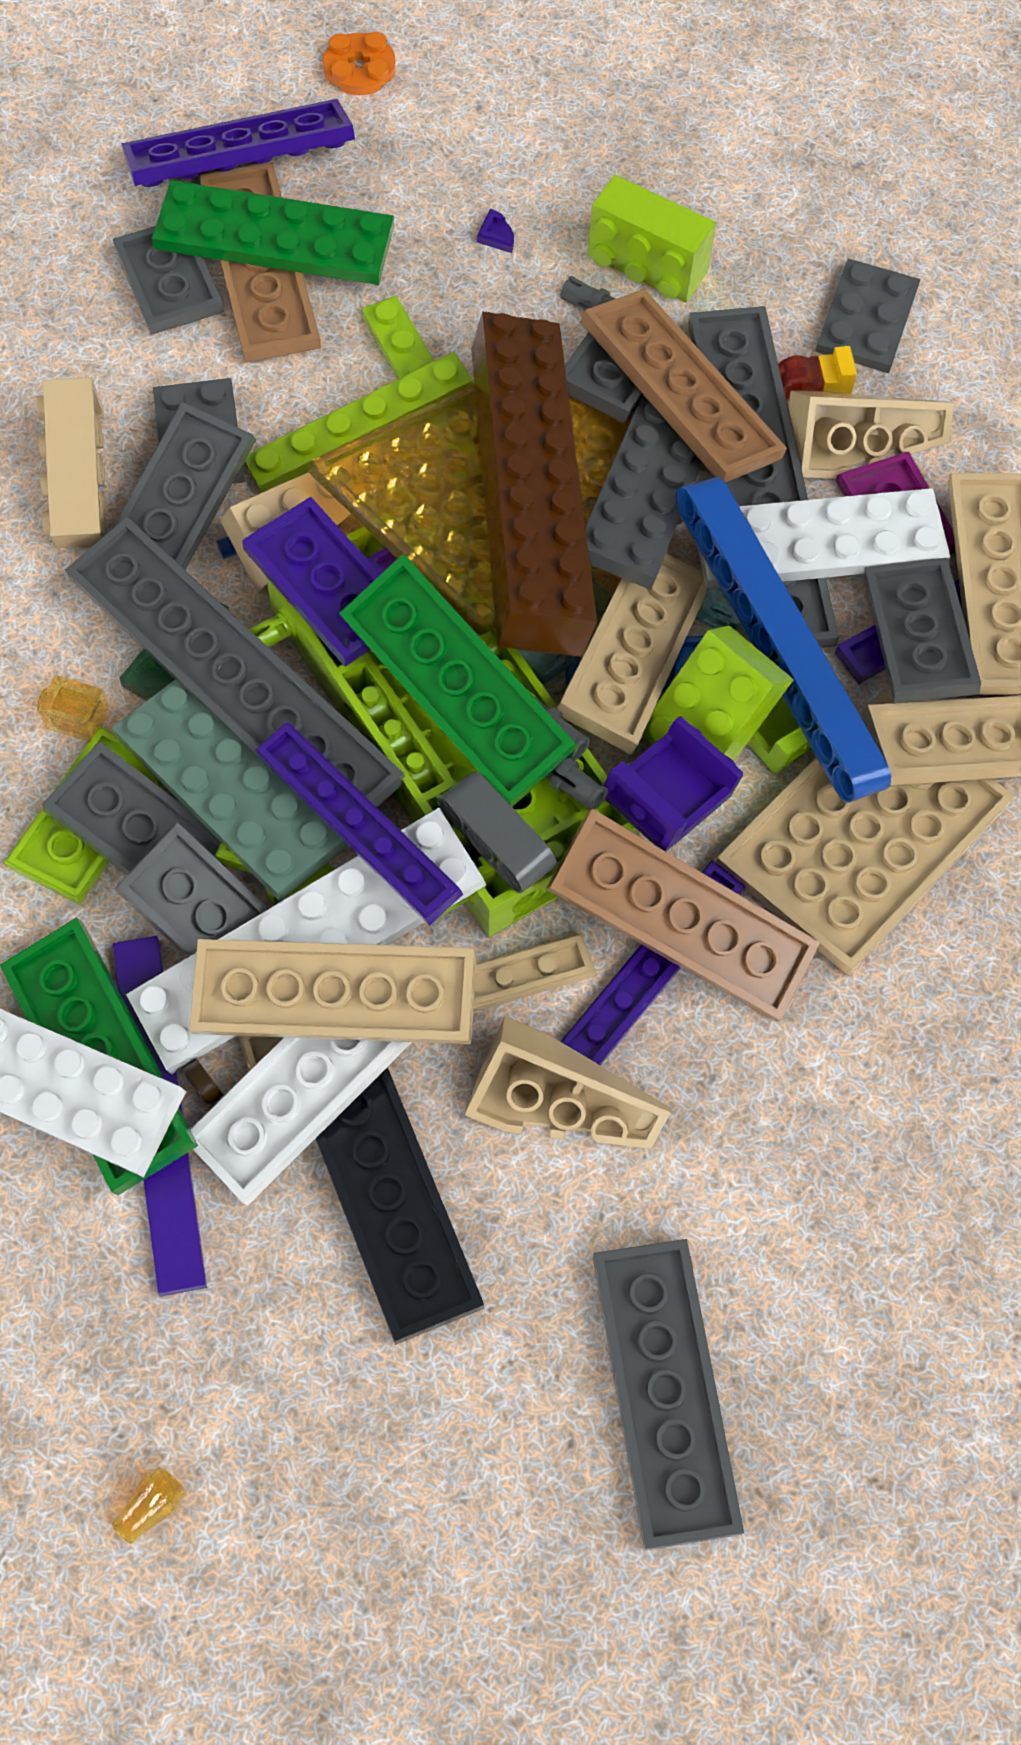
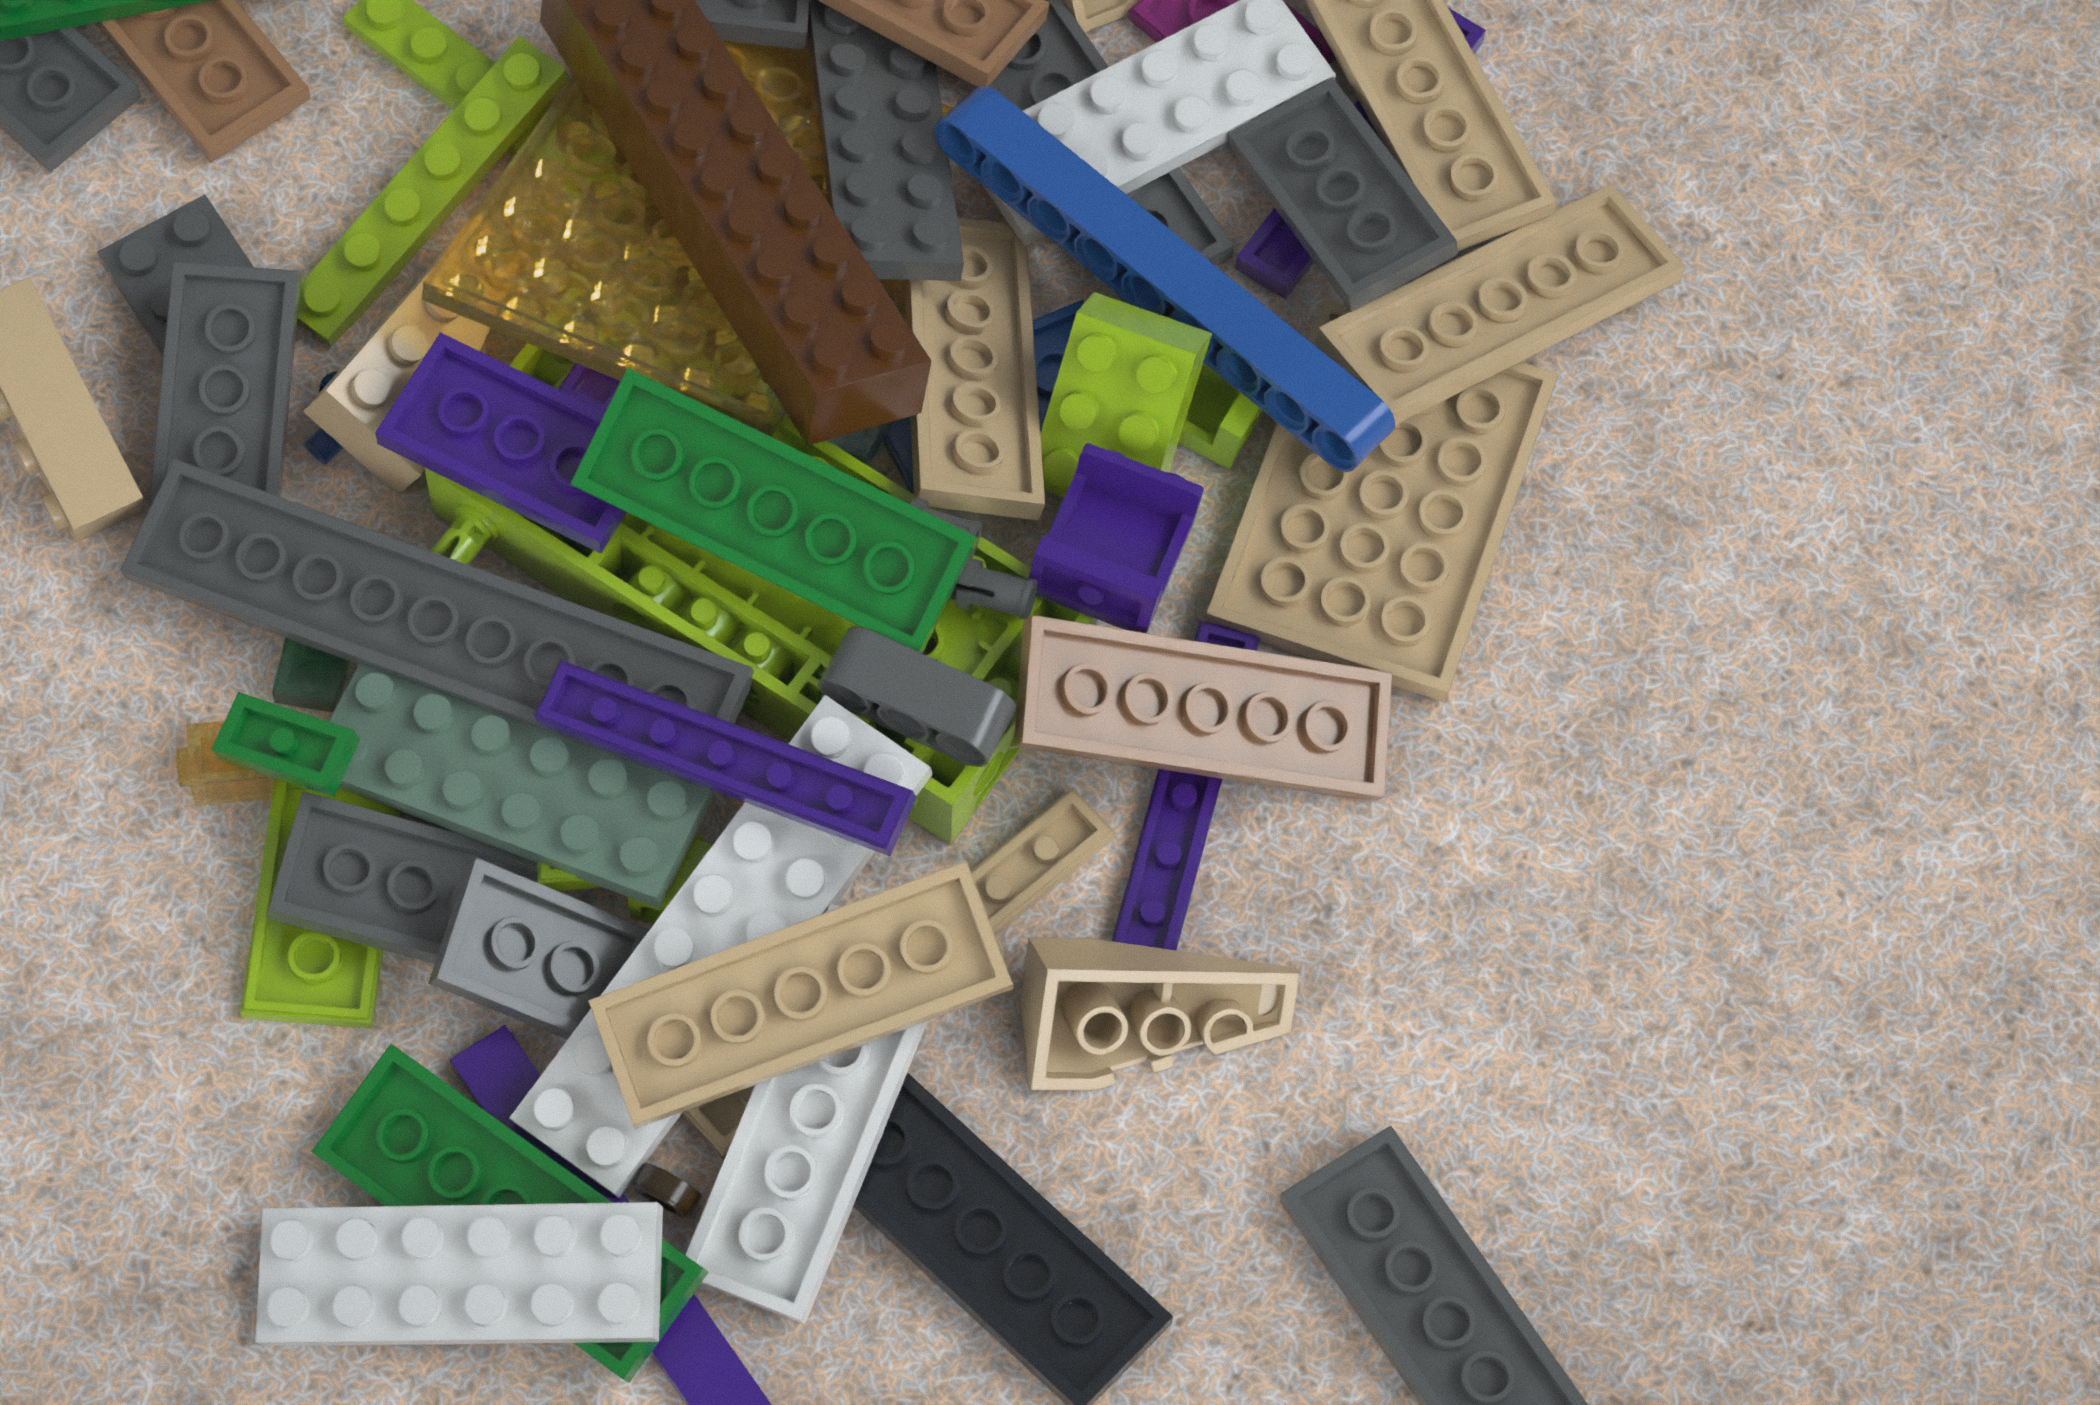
camera: 25 degrees left, 0 degrees up
(101, 708) = (285, 744): none -> green plate
(716, 610) = (1056, 272): clear light blue plate -> none

